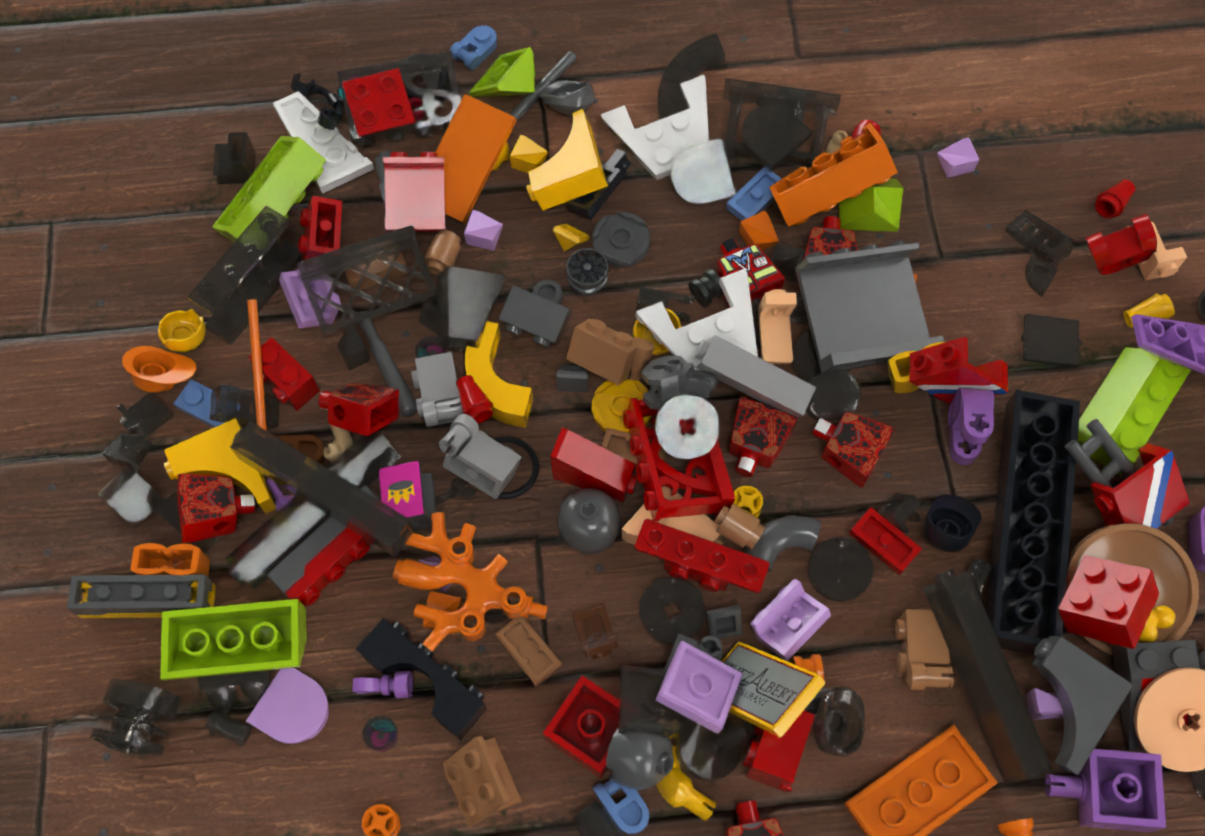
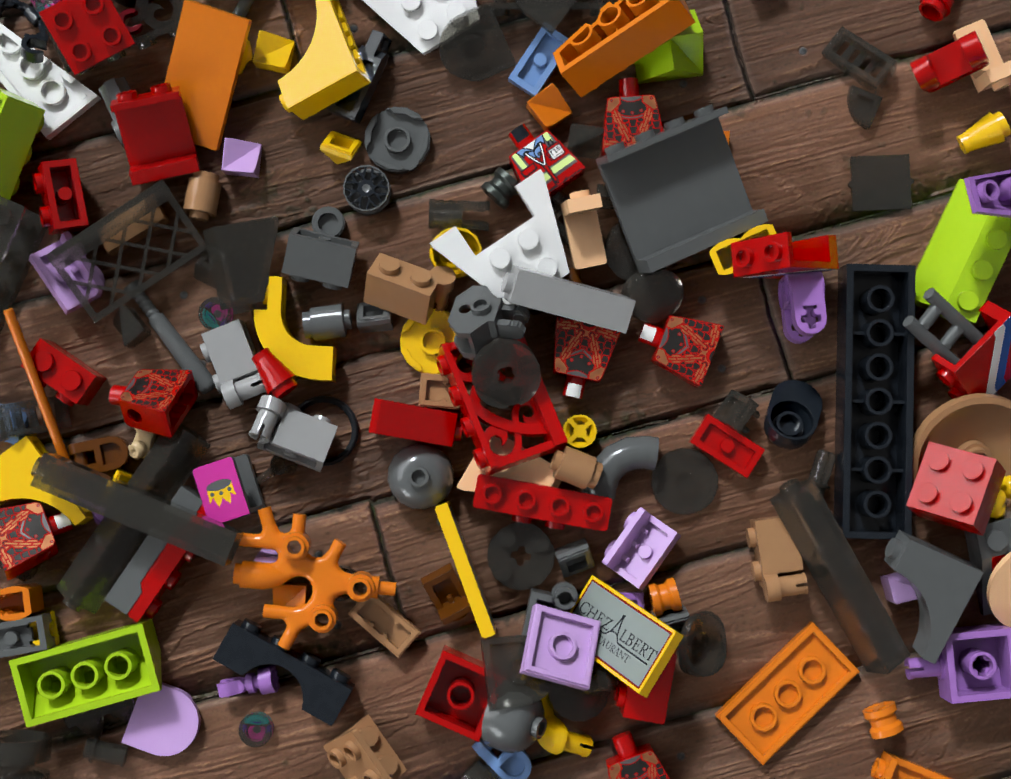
camera: 10 degrees left, 20 degrees up
(529, 371) = (326, 322): none -> dark grey brick
(617, 600) = (466, 569): none -> yellow tile

